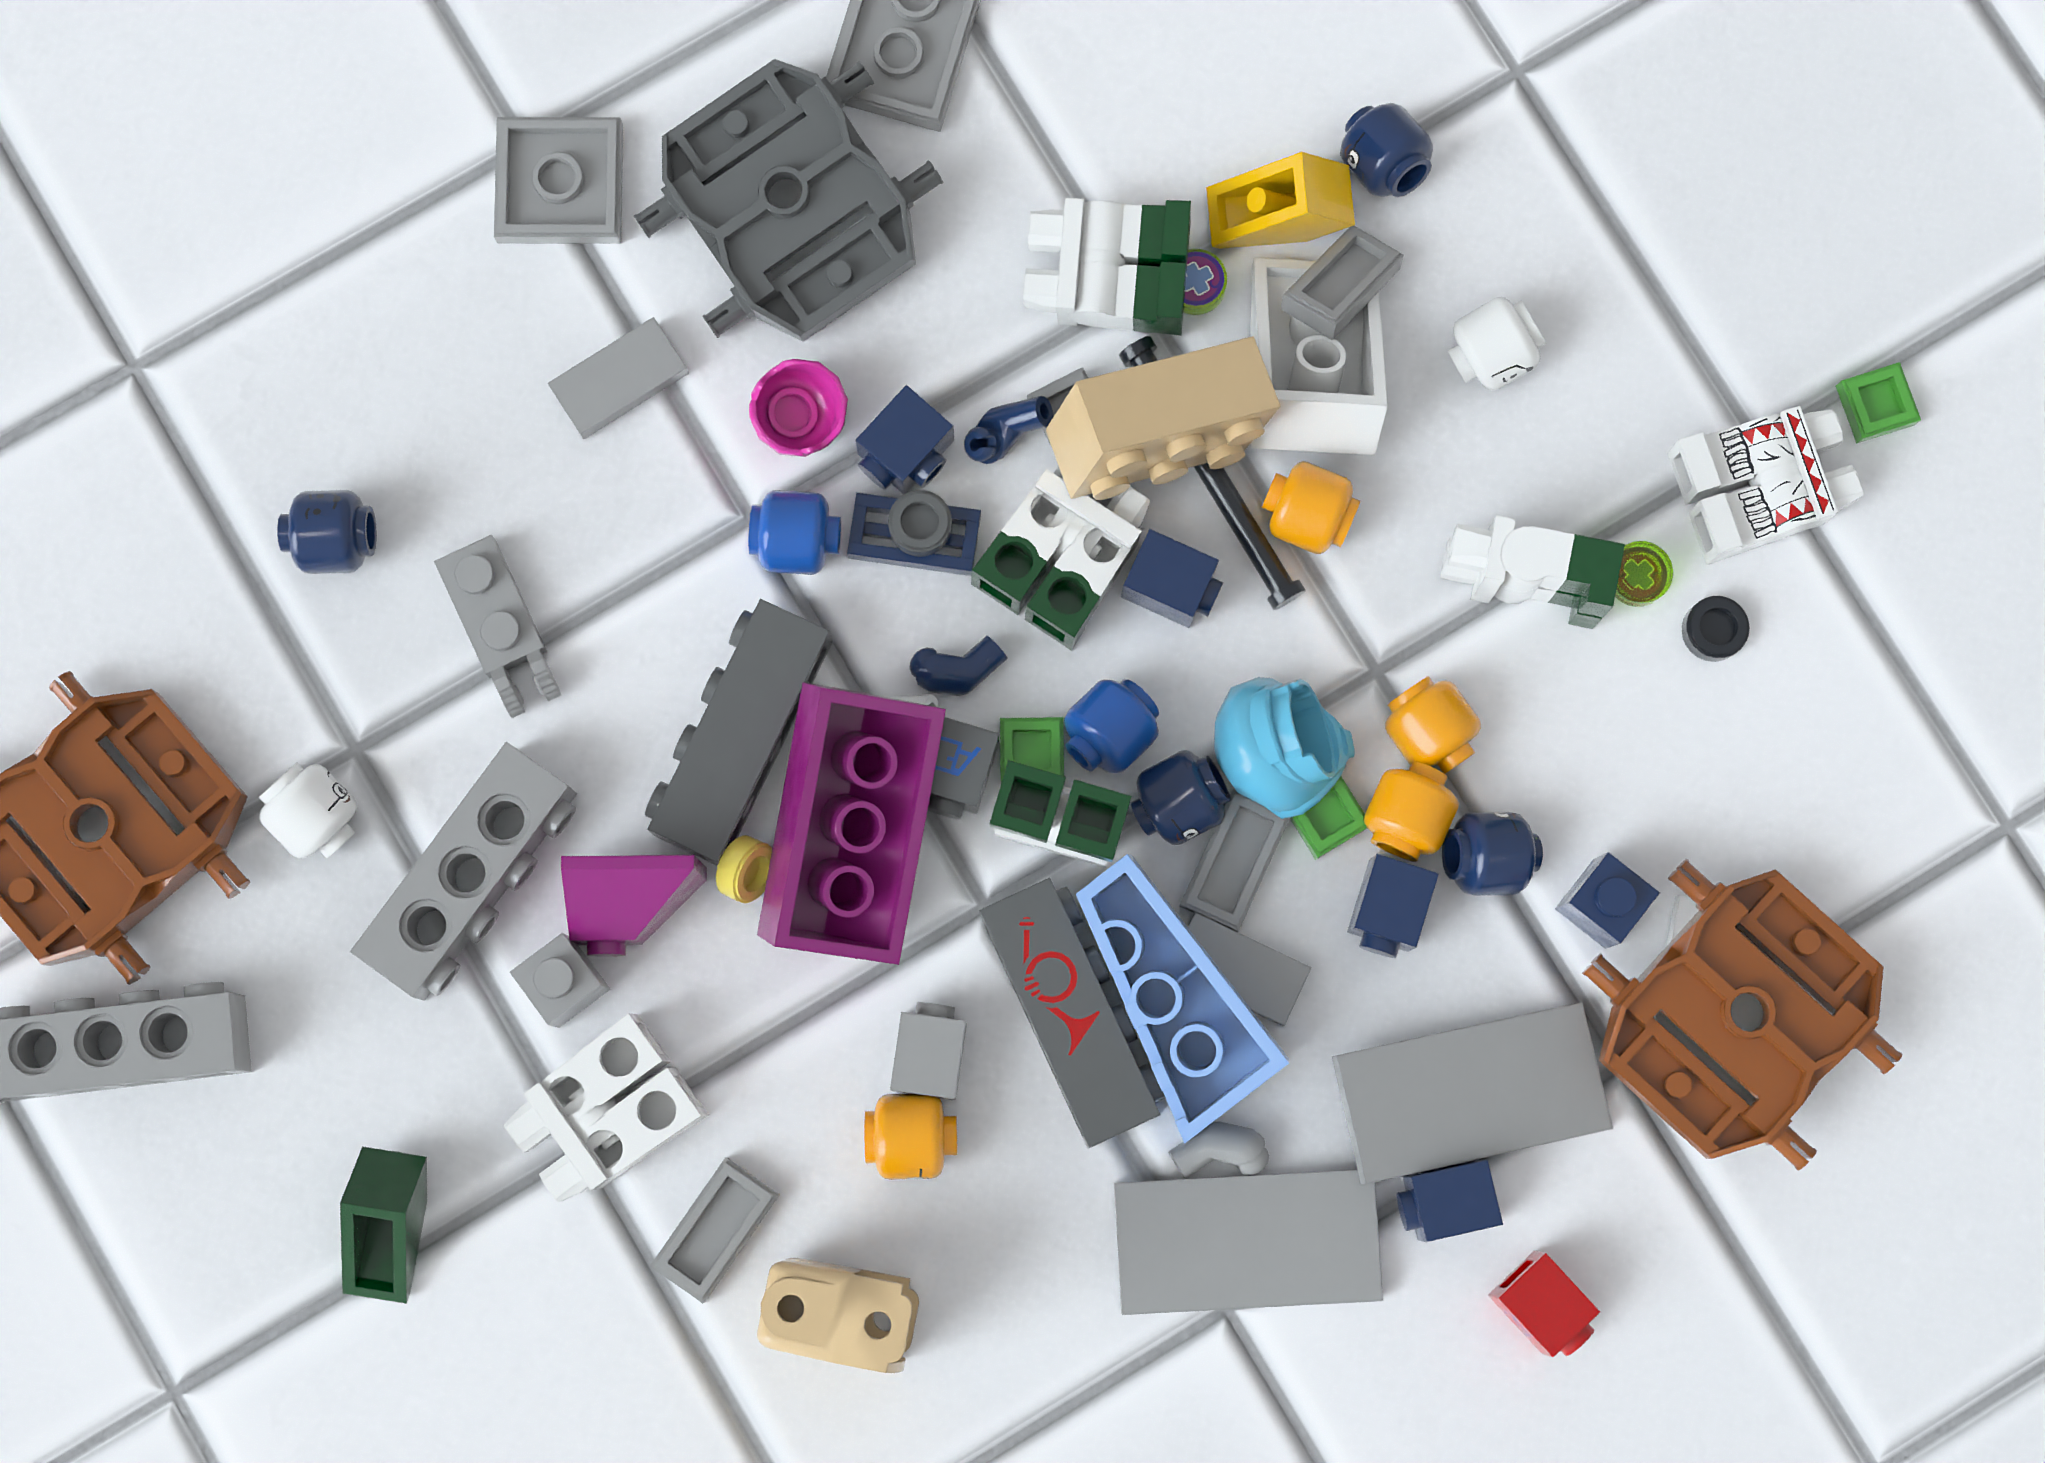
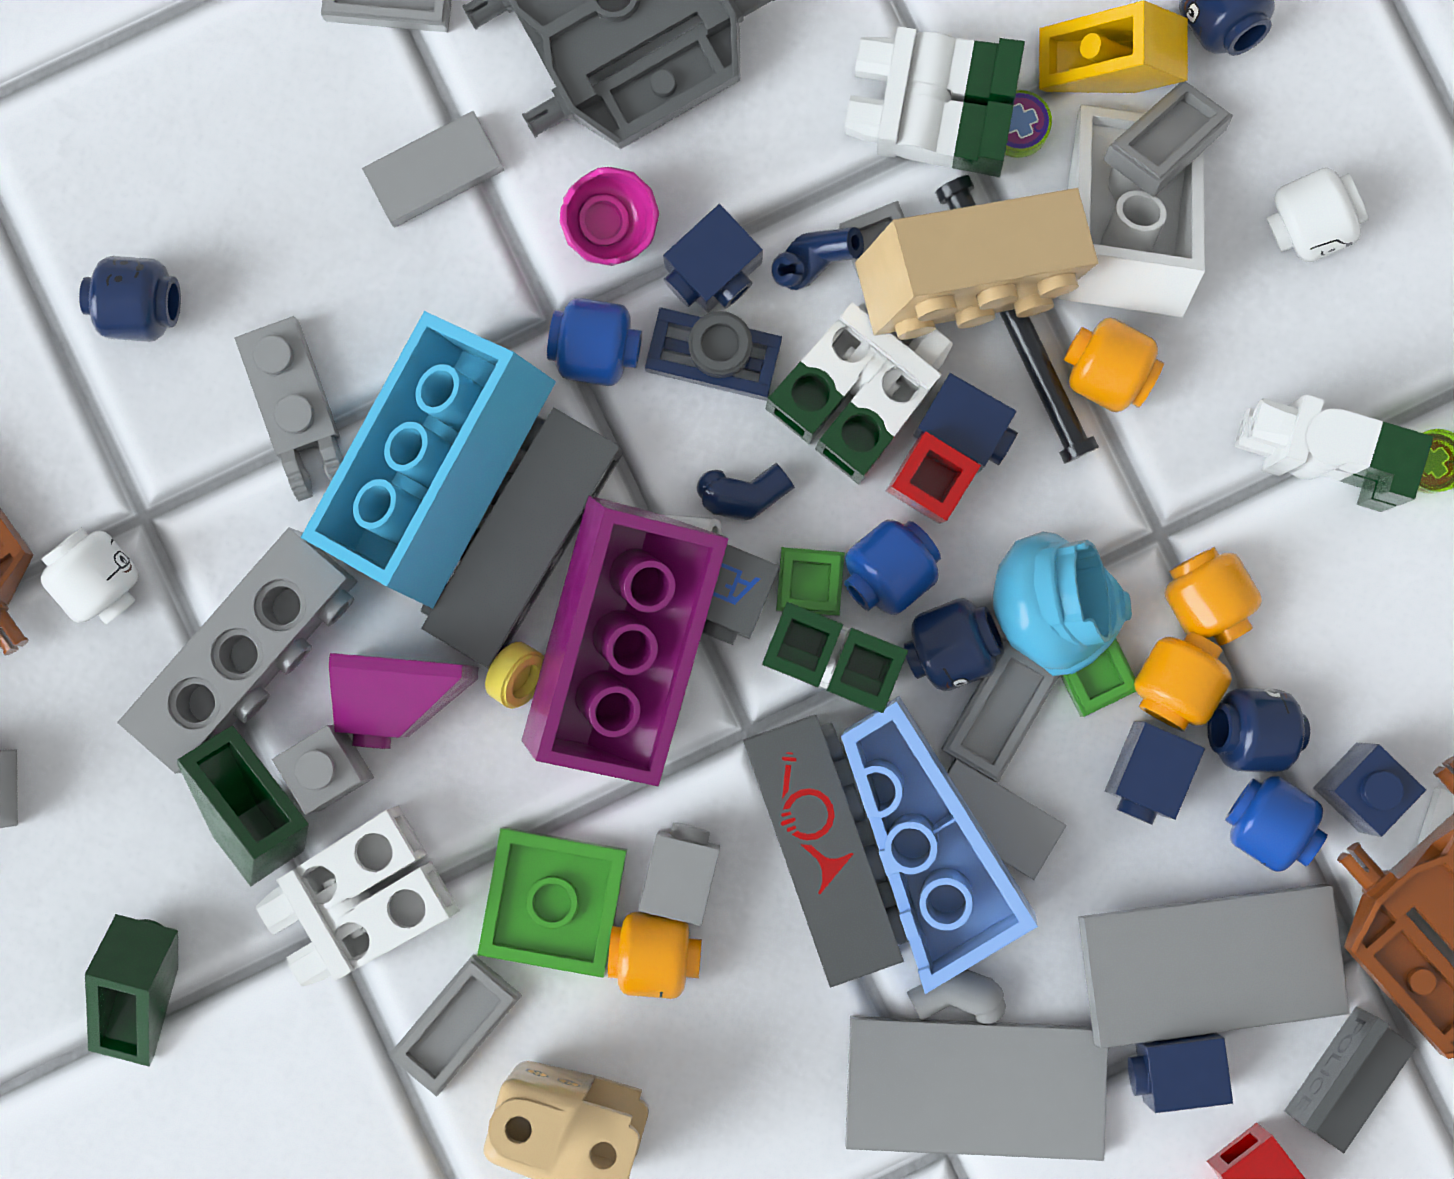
camera: 15 degrees right, 5 degrees up
(484, 1025) = (243, 805): none -> dark green slope
(640, 660) = (428, 459): none -> medium azure brick
(802, 1095) = (552, 902): none -> bright green tile
(1142, 633) = (933, 478): none -> red brick
(1519, 944) = (1276, 824): none -> blue head
(1622, 1195) = (1350, 1079): none -> dark grey panel

